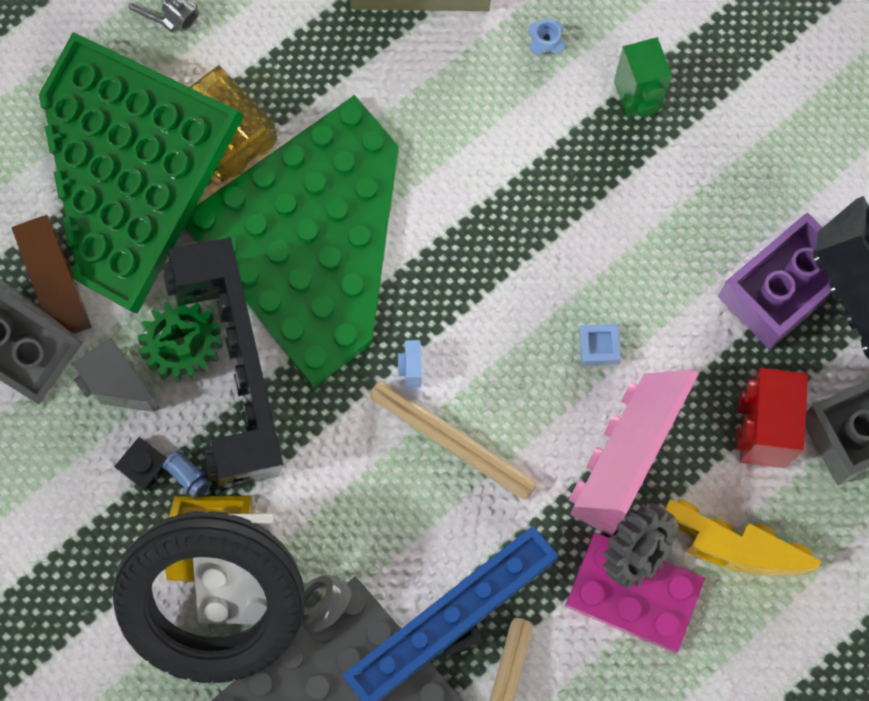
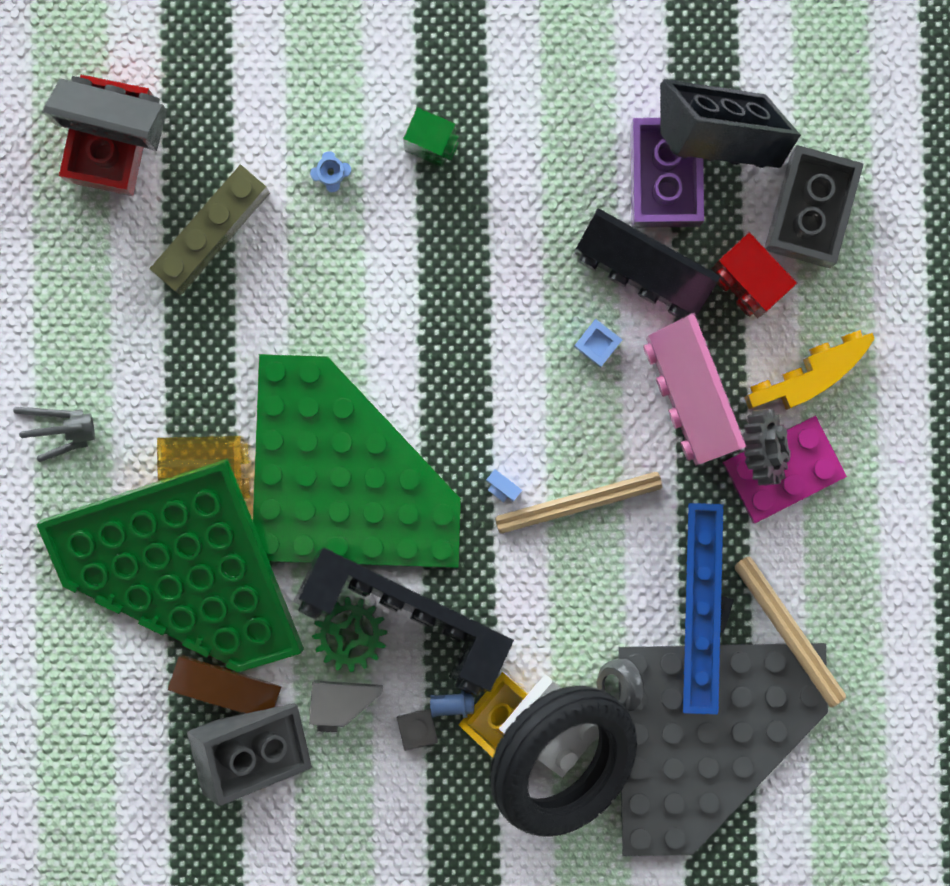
camera: 50 degrees left, 15 degrees up
(700, 323) = (645, 264): none -> black slope

